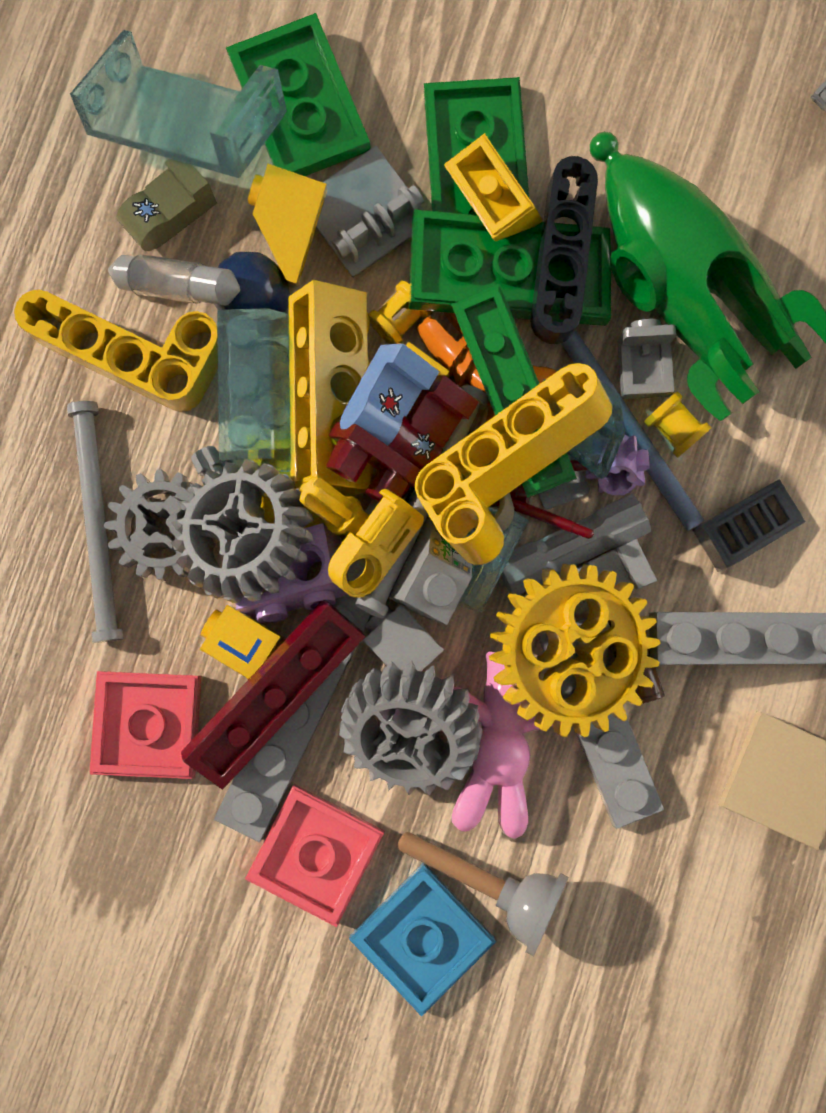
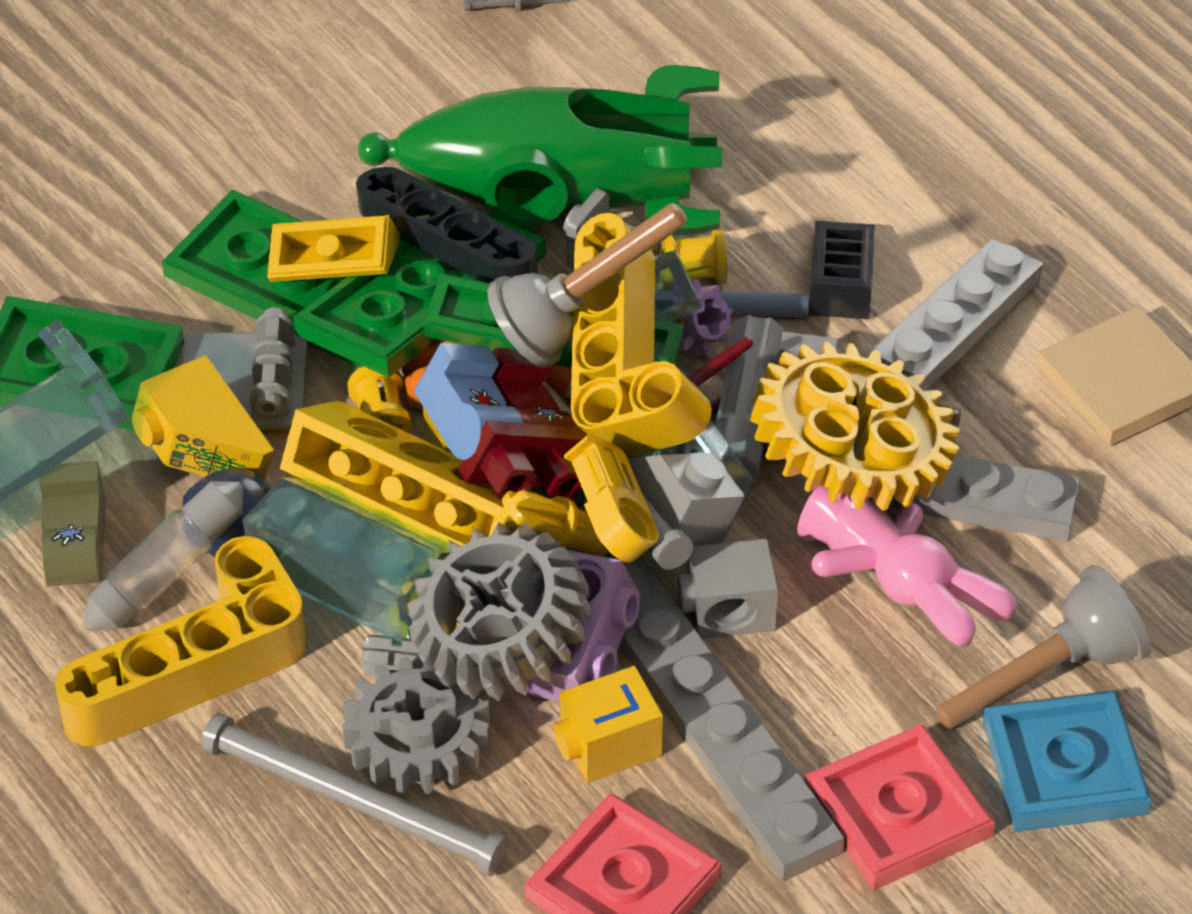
camera: 55 degrees left, 35 degrees down
(272, 694) = (693, 705): dark red plate -> none
(411, 714) = (815, 656): light grey gear -> none
(486, 381) = (539, 310): none -> light grey piece

